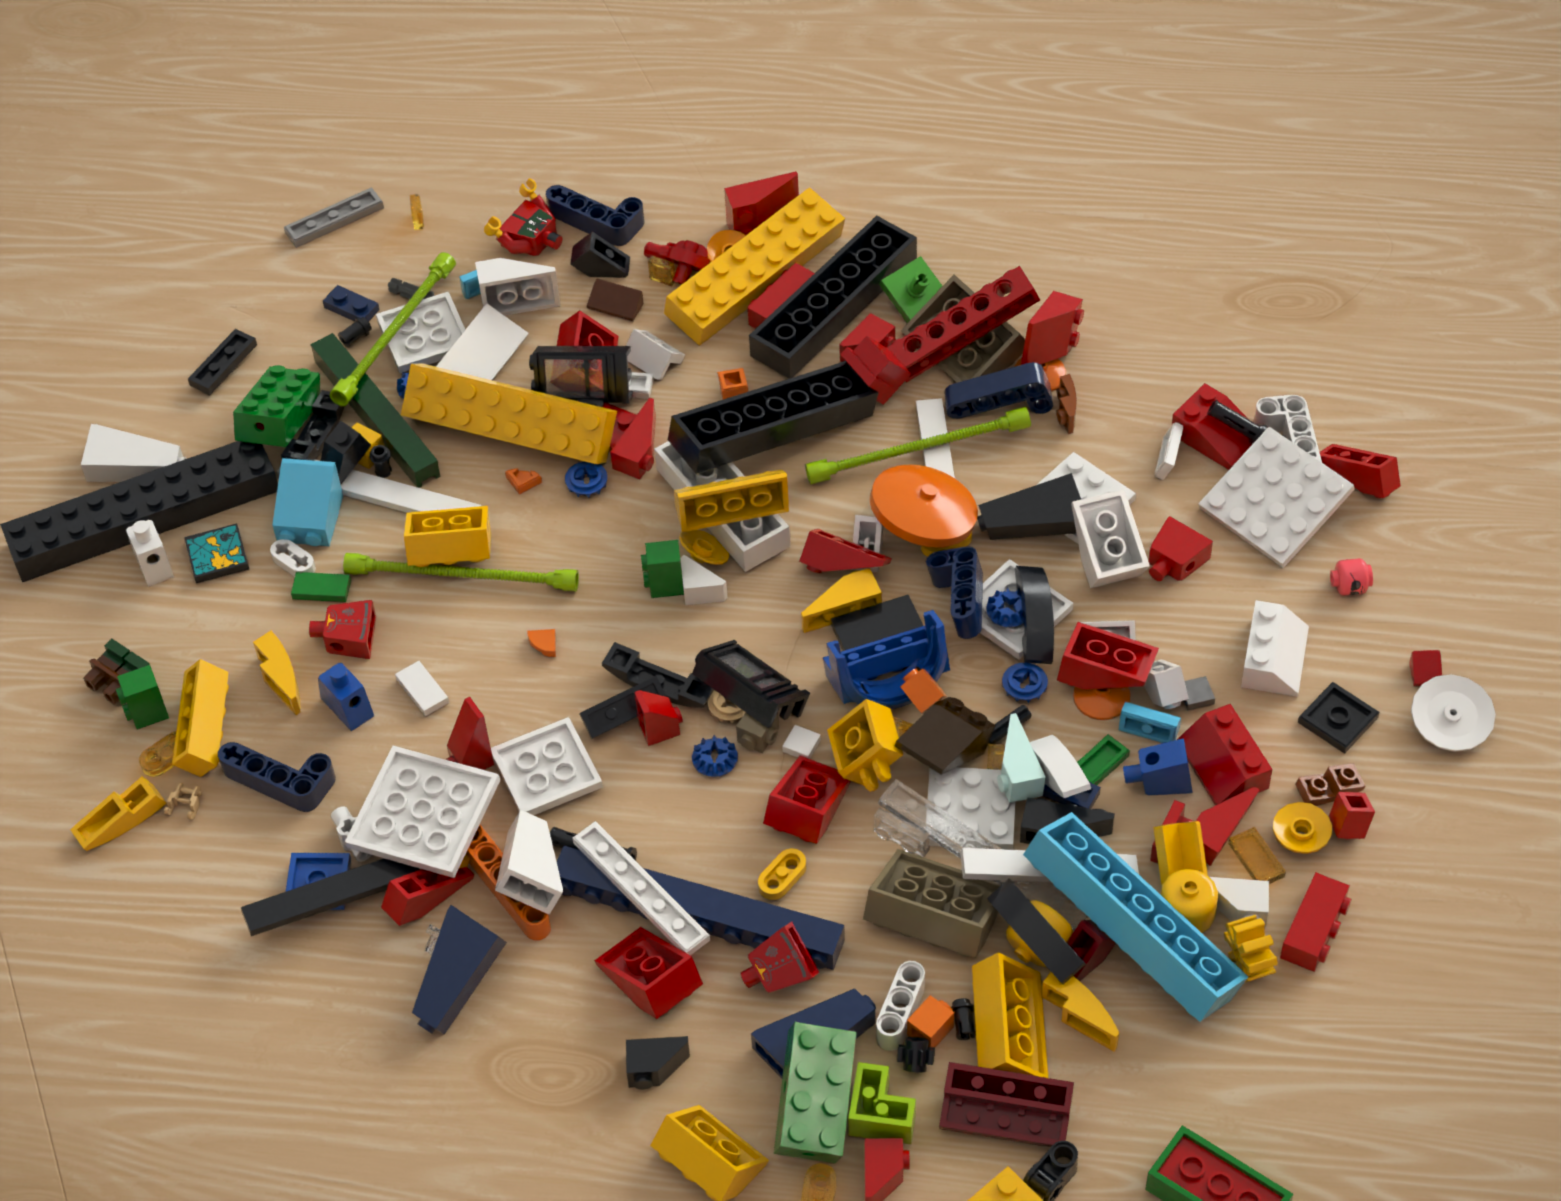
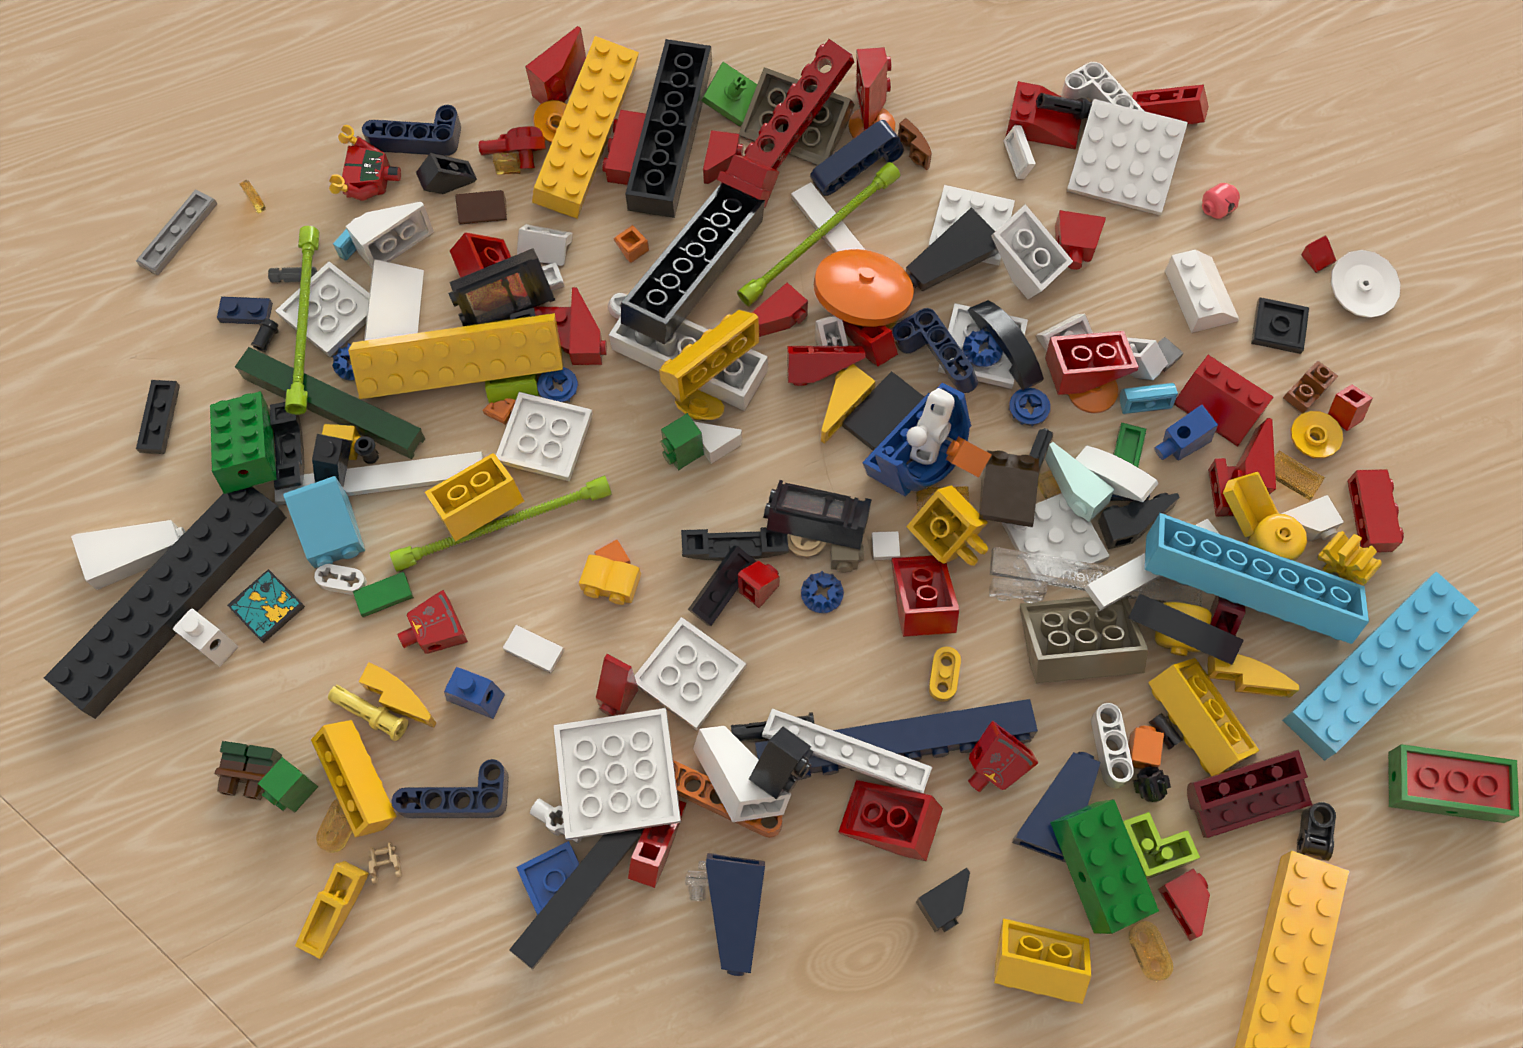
camera: 30 degrees left, 15 degrees up
(252, 681) = (378, 717): none -> light yellow pin
(526, 659) = (609, 579): none -> yellow brick
(544, 463) = (510, 387): none -> lime slope
(545, 516) = (544, 436): none -> white plate
(568, 857) = (781, 763): none -> black brick
(828, 499) = (781, 310): none -> red slope
(900, 648) = (931, 428): none -> white piece
(905, 560) = (877, 341): none -> red slope
(1222, 1058) = (1380, 666): none -> medium azure brick

